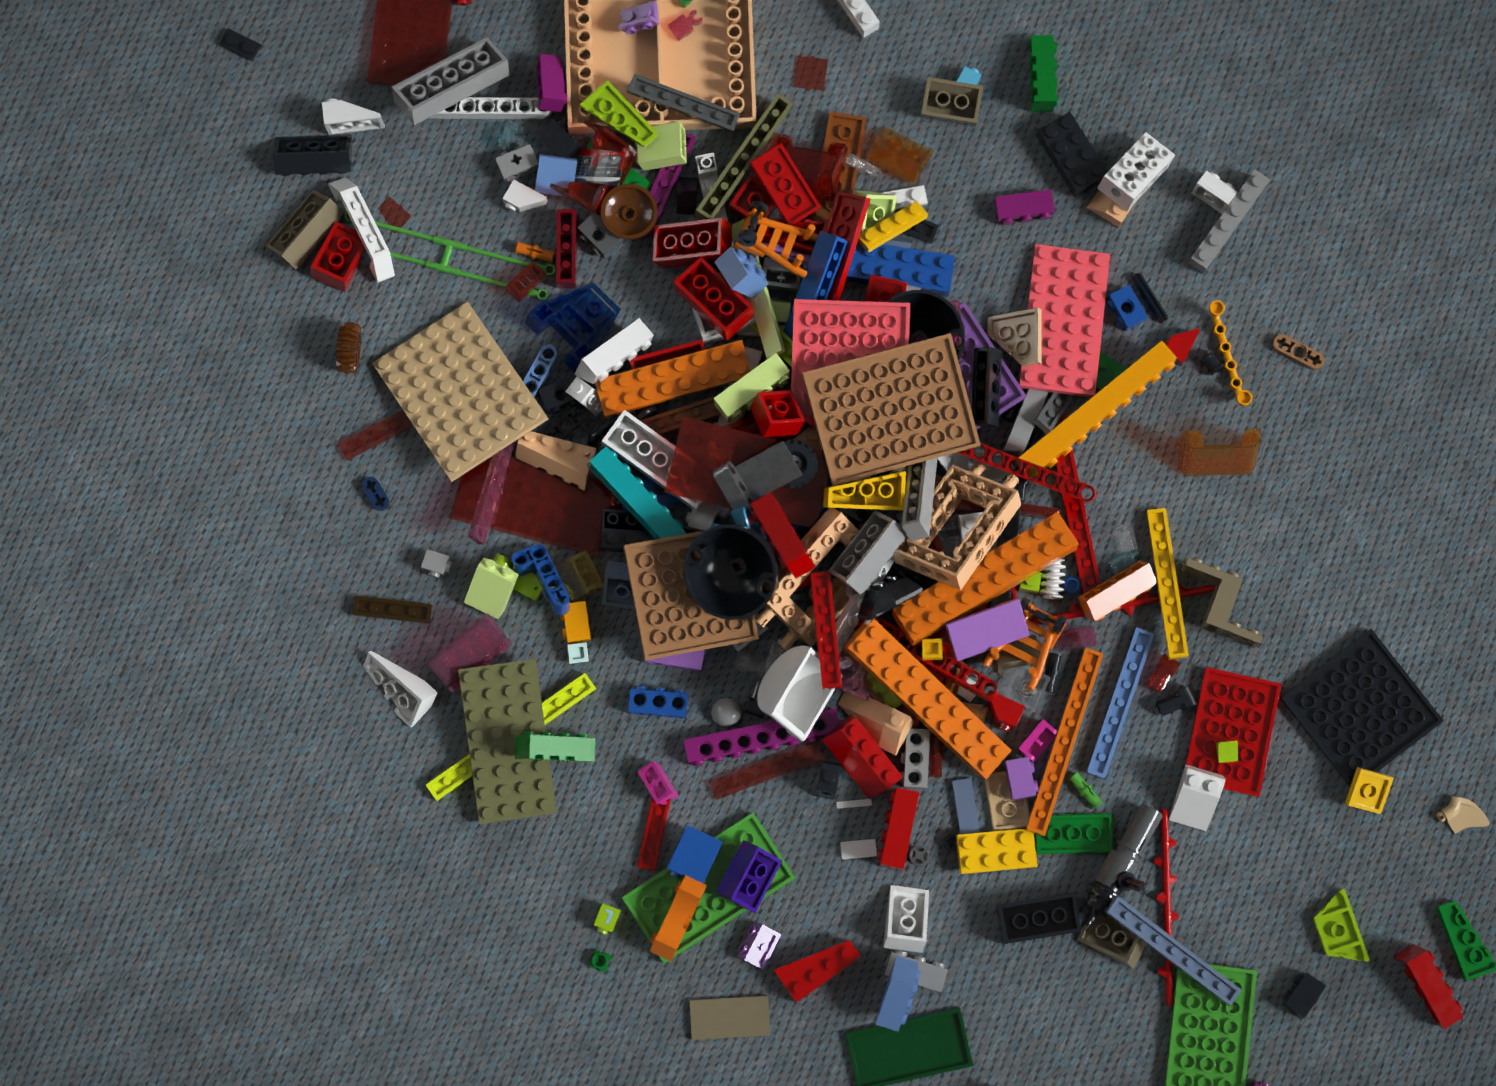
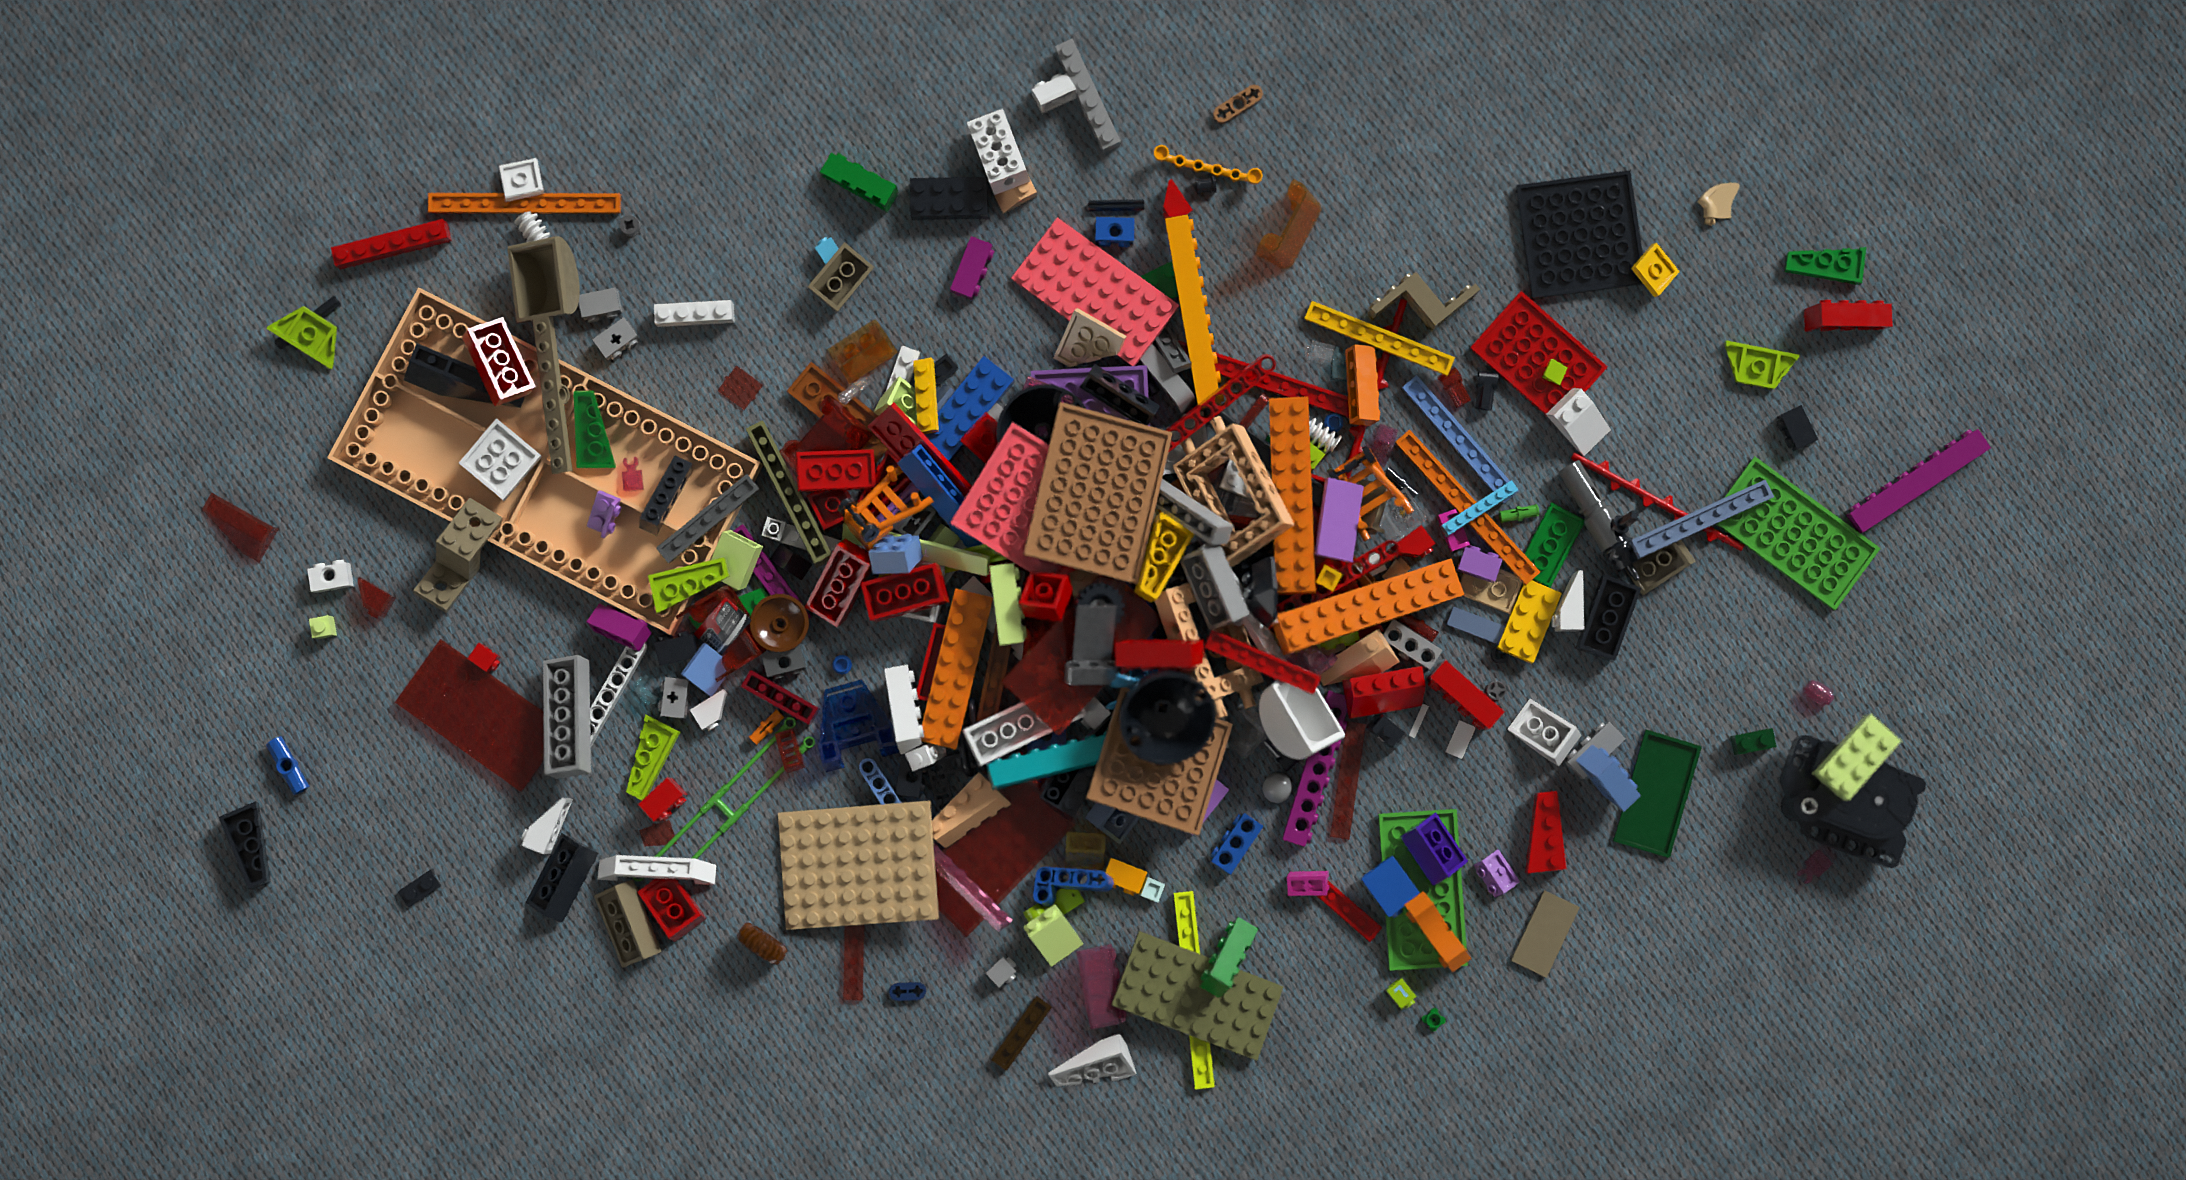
camera: 55 degrees left, 5 degrees up
(425, 199) = (663, 800): none -> red brick
(461, 170) = (654, 747): none -> lime wing
(623, 285) = (842, 664): none -> blue plate
(683, 58) = (665, 495): none -> black brick
(1026, 879) = (1570, 610): none -> white slope
(1069, 750) = (1479, 508): none -> medium azure piece

